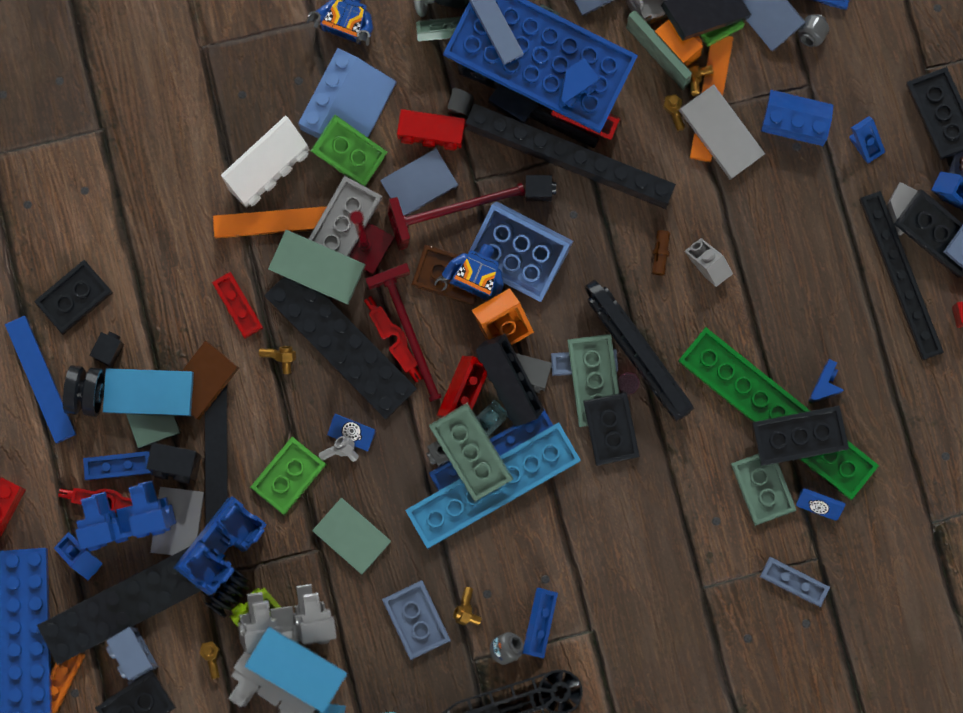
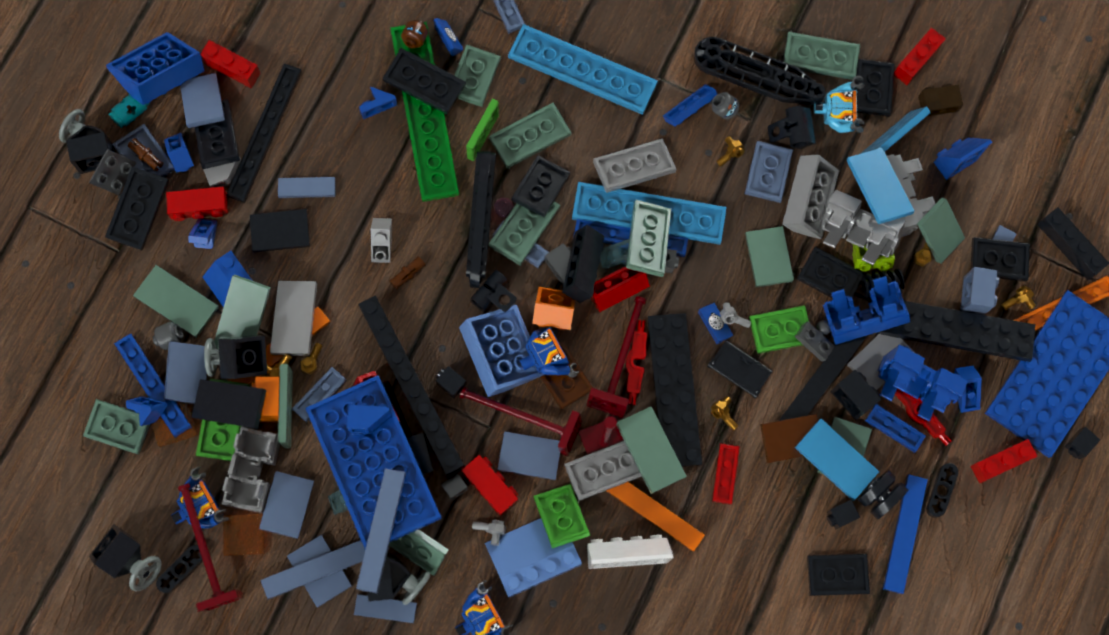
camera: 150 degrees left, 5 degrees down
(26, 440) = (934, 493): none -> black beam
(89, 690) = (1024, 294): none -> pearl gold piece
(209, 685) = (941, 230): none -> sand green tile
(248, 487) = (814, 340): none -> dark grey plate
(281, 564) = (829, 274): none -> black tile
(295, 408) = (738, 370): none -> black door
(358, 625) = (810, 195): none -> light grey slope
(395, 99) = (495, 528): none -> light grey piece
(422, 681) = (796, 126): none -> black piece
(543, 519) = (634, 165): none -> light grey tile
(570, 293) = (491, 291): none -> black piece
(642, 89) = (323, 389): none -> sand blue tile
(663, 472) = (530, 135): none -> sand green tile
(669, 576) = (582, 69): none -> dark azure plate
(706, 434) = (483, 129): none -> bright green tile
(732, 54) = (236, 356): none -> black piece
(764, 92) = (242, 309): none -> sand green tile
(805, 199) = (279, 230): none -> black tile
(817, 256) = (306, 187): none -> sand blue tile
(835, 66) = (176, 301): none -> sand green tile
(849, 473) = (414, 34): none -> reddish brown head
(896, 160) = (197, 203): none -> red brick

